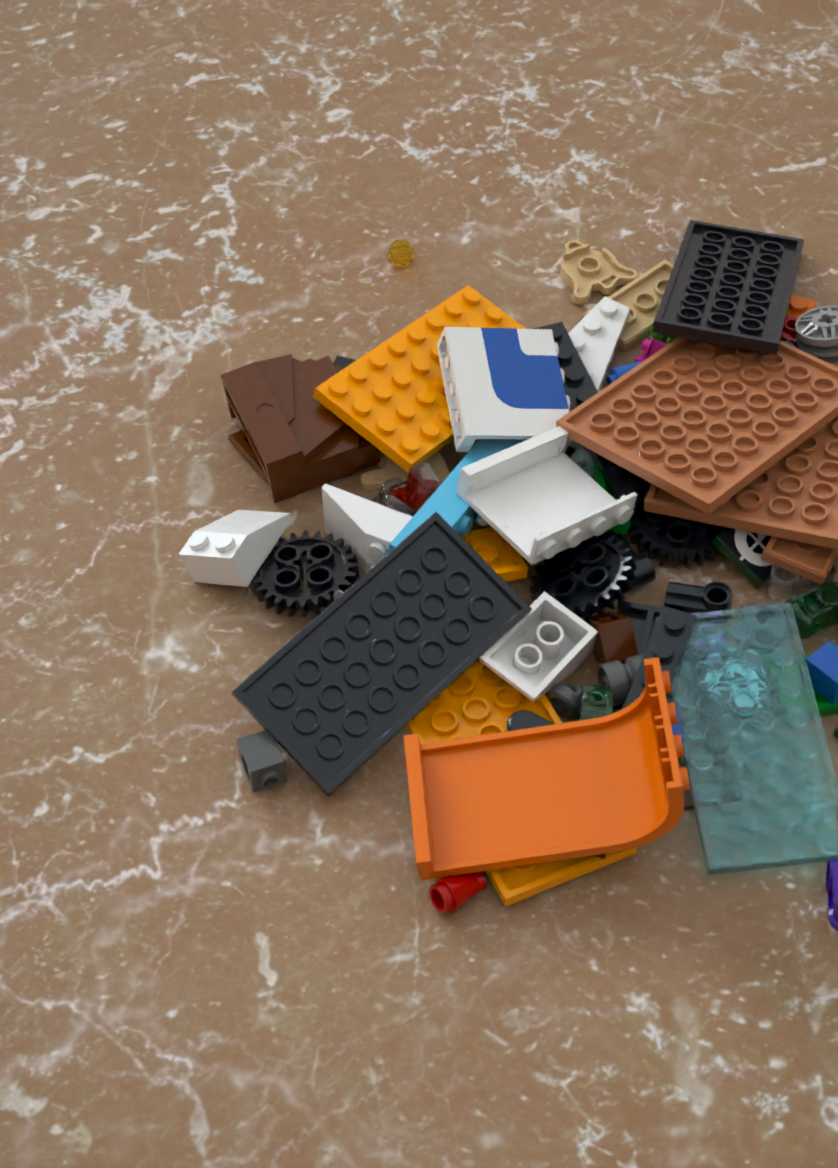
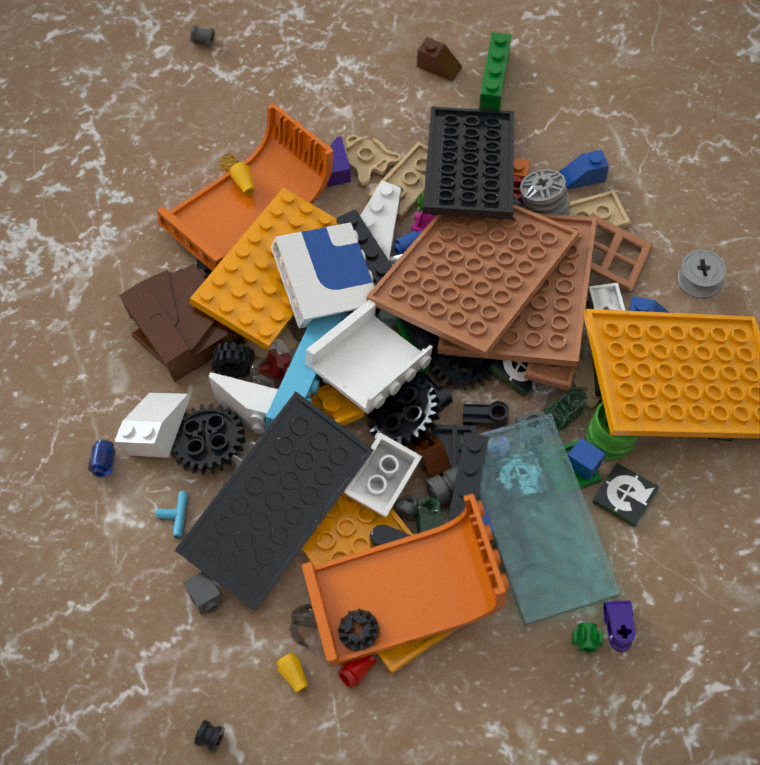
camera: 10 degrees left, 10 degrees up
(157, 576) = (101, 458): none -> clear blue brick
(233, 940) = (209, 736): none -> black wheel
(246, 662) = (177, 514): none -> medium azure piece
(353, 469) = (232, 360): none -> black tyre
(365, 877) = (292, 672): none -> yellow cone
(388, 813) = (302, 618): none -> clear smoke piece
(395, 101) = (202, 35): none -> dark grey bush
(415, 266) = (242, 176): none -> yellow cone
(455, 842) = (369, 632): none -> black gear
(482, 249) = (221, 213): none -> orange panel
(544, 271) = (341, 169): none -> dark purple slope
(709, 166) = (437, 59): none -> reddish brown slope
(786, 188) = (495, 71): none -> green brick
(796, 901) = (587, 637): none -> green gear

